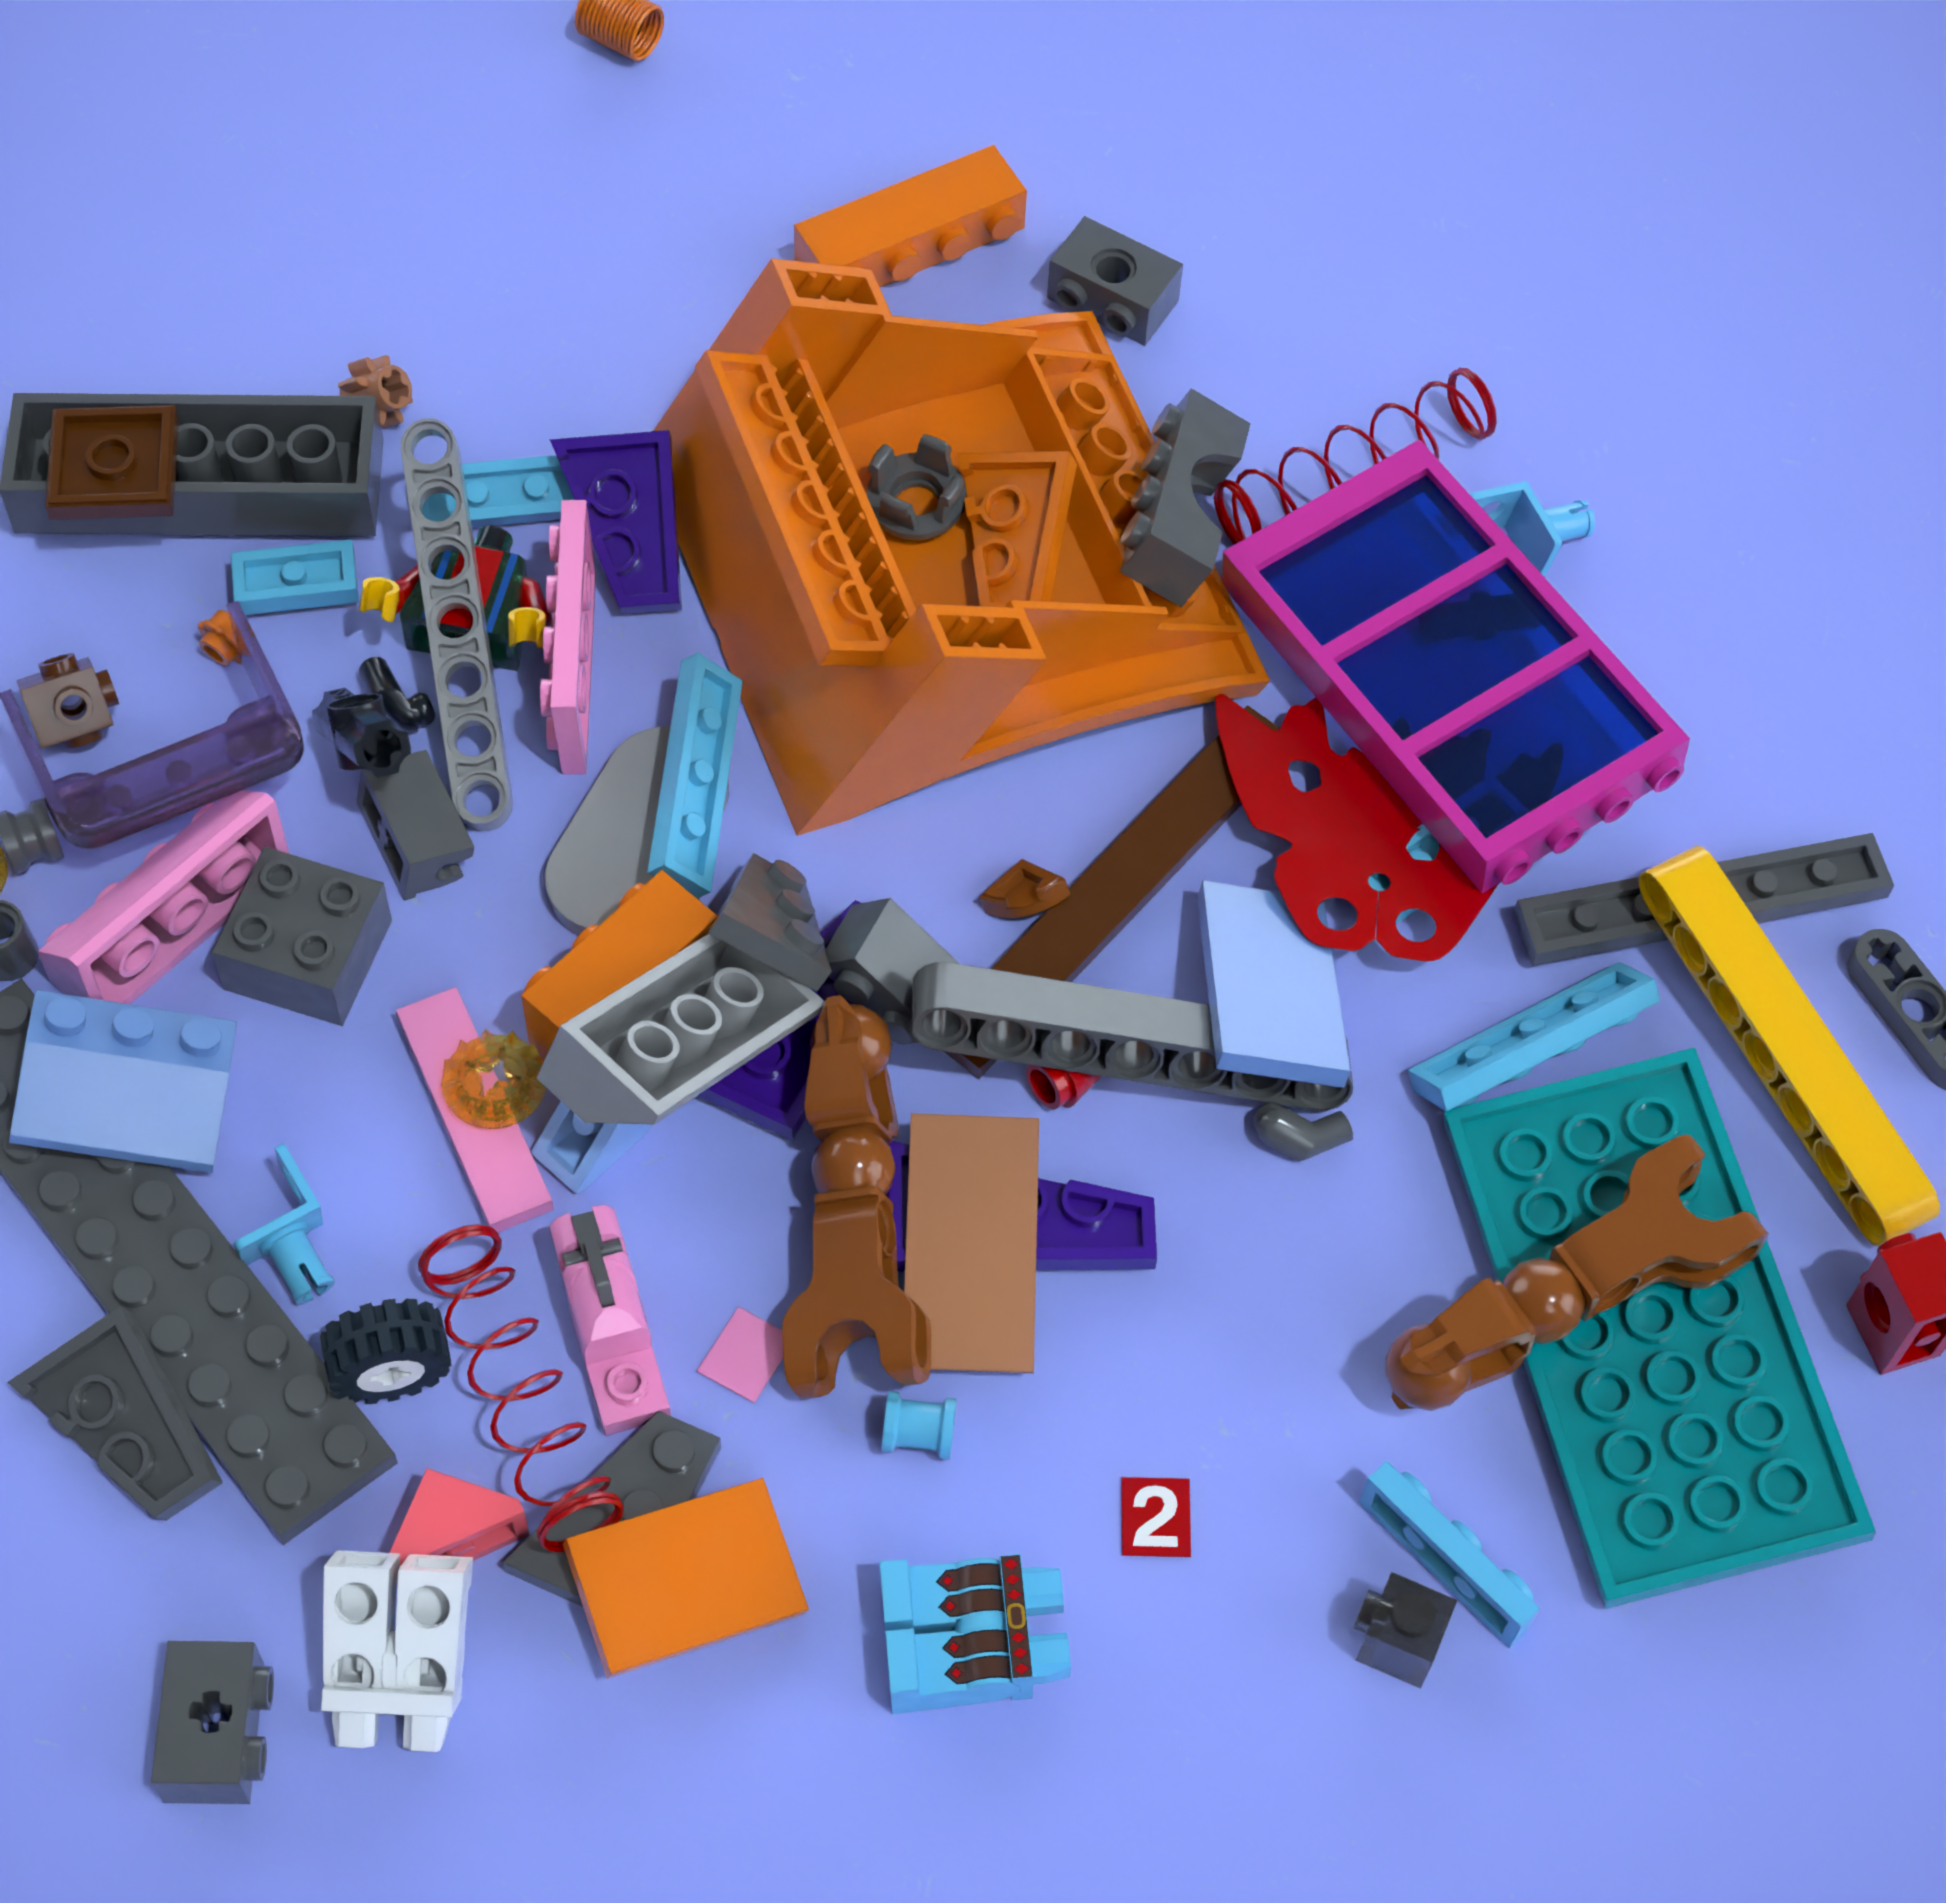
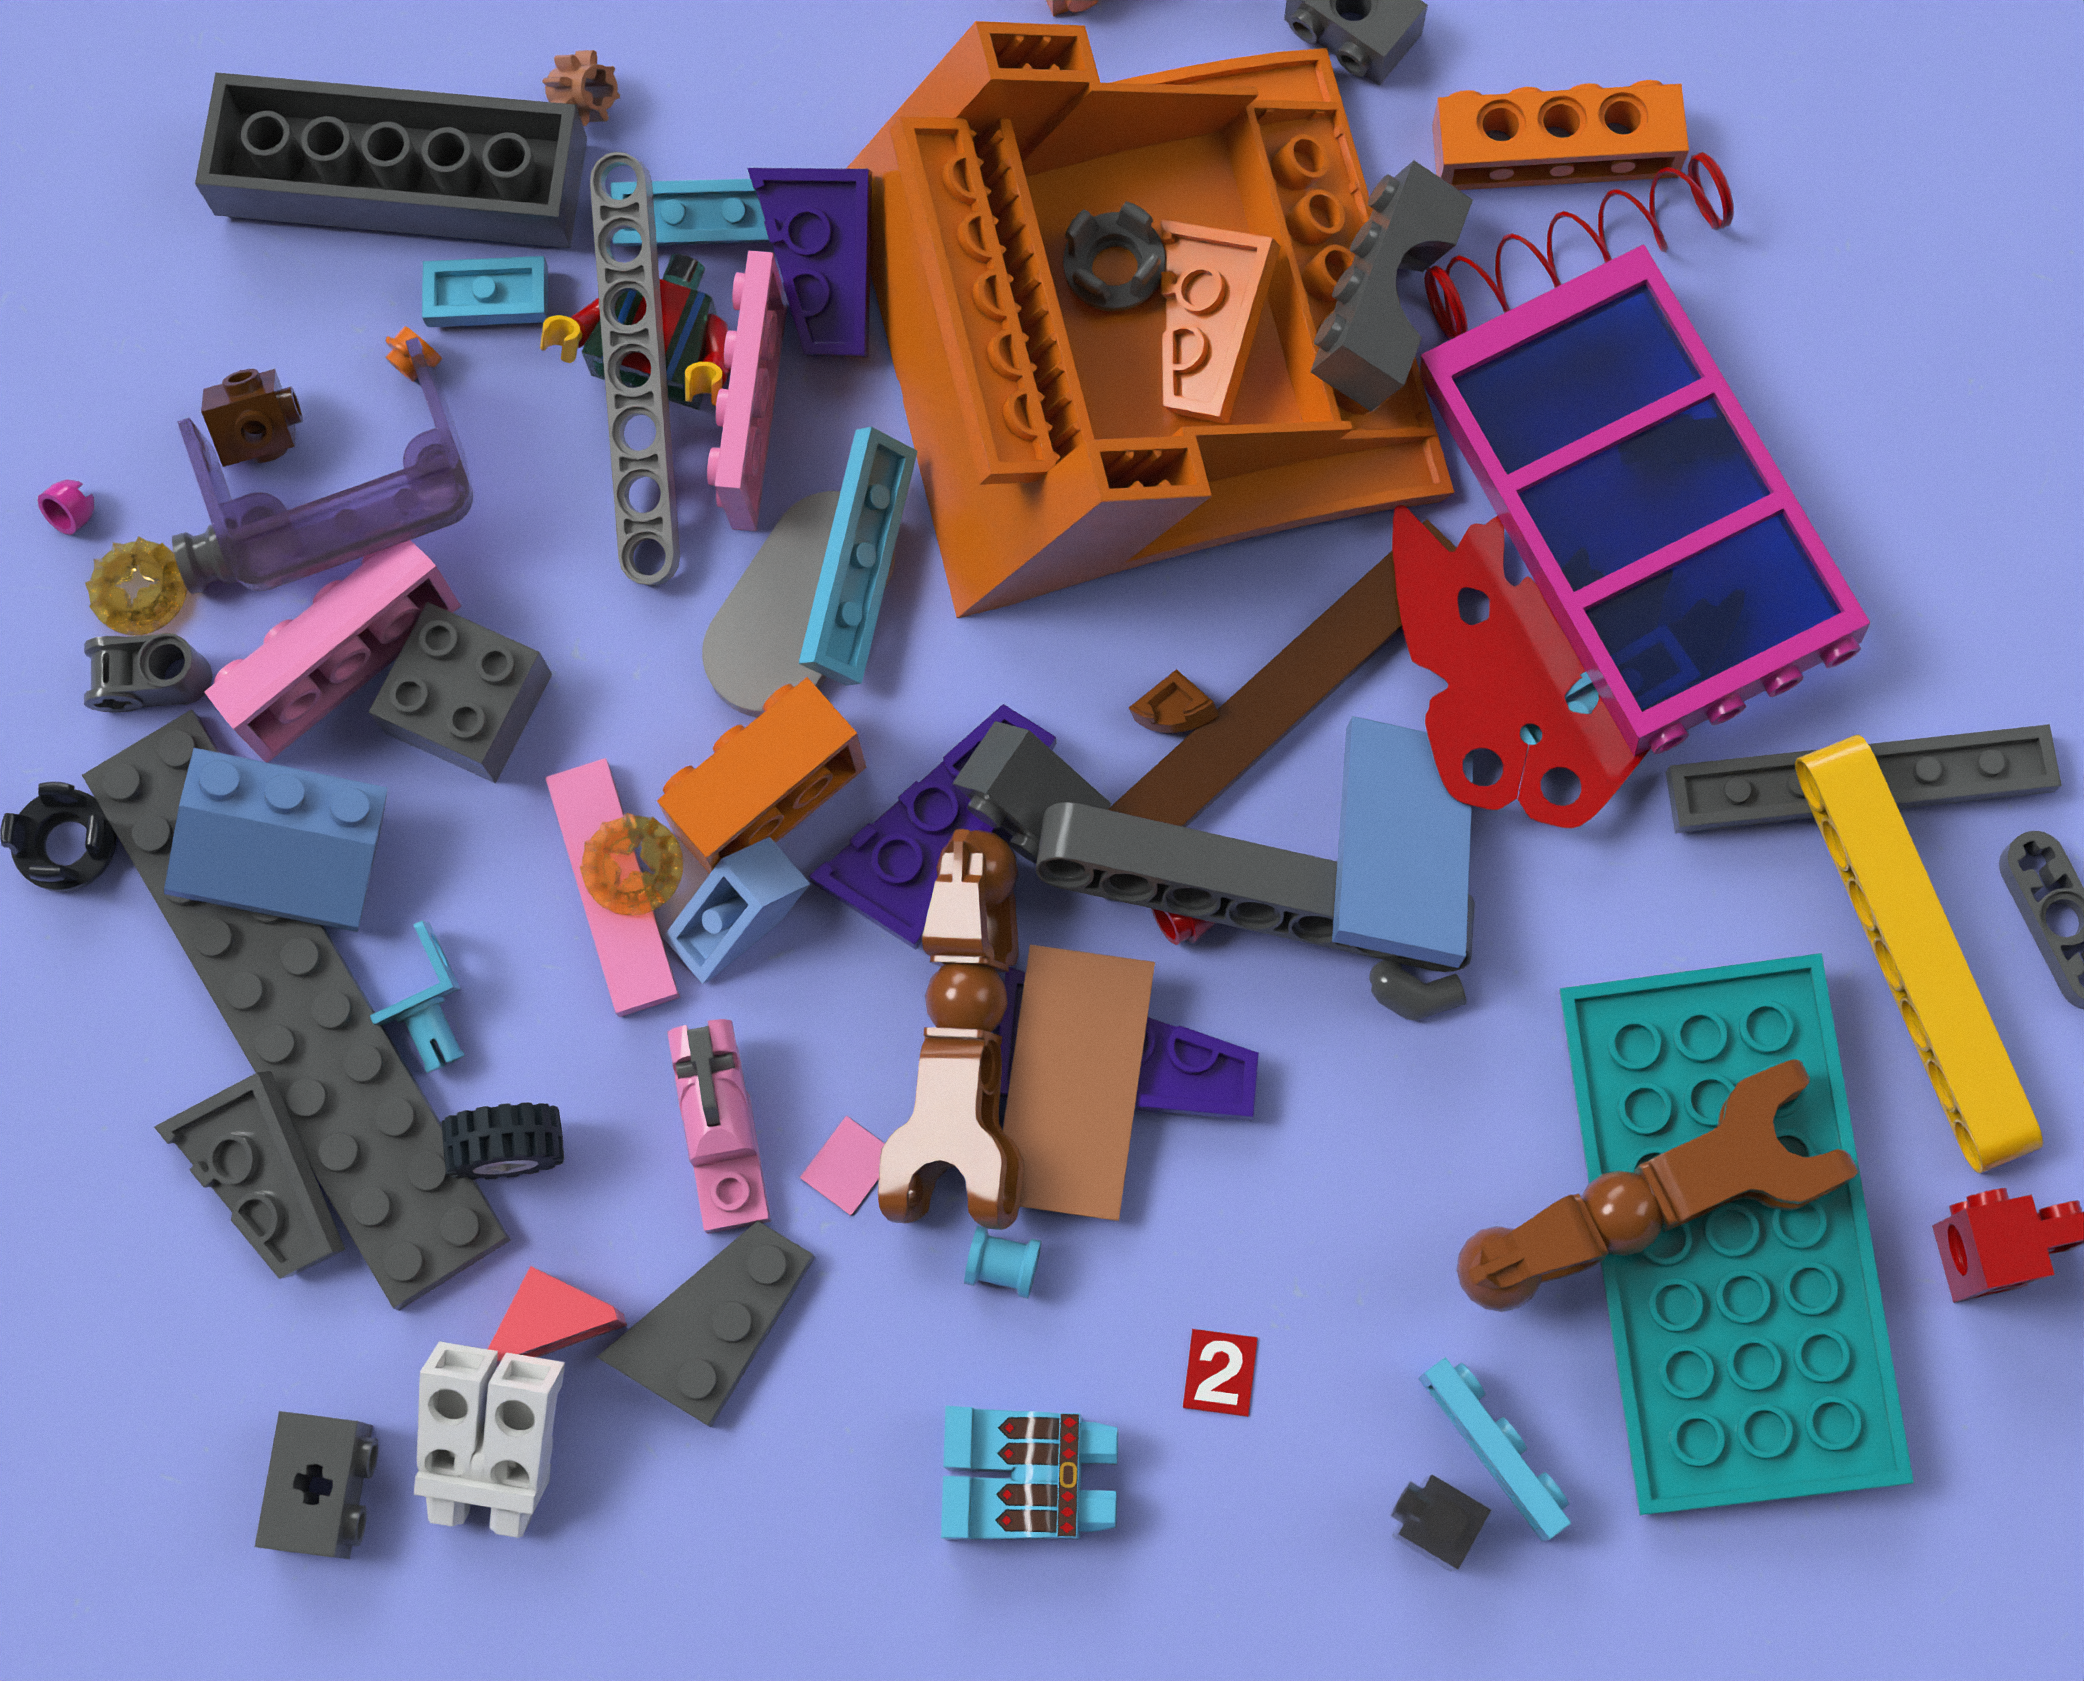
camera: 15 degrees right, 15 degrees up
(112, 462) = (307, 163): reddish brown tile -> none
(361, 732) = (530, 487): black piece -> none
(403, 711) = (566, 434): black arm -> none
(415, 825) = (580, 576): dark grey hinge -> none
(564, 1505) = (646, 1332): red piece -> none
(673, 1034) = (806, 858): light grey slope -> none
(685, 1577) = (764, 1395): orange tile -> none
(774, 921) = (914, 733): dark grey wing -> none
(1324, 368) = (1536, 158): none -> orange brick
(1531, 527) = (1753, 340): medium azure bracket -> none
(1533, 1036) = (1663, 914): medium azure plate -> none

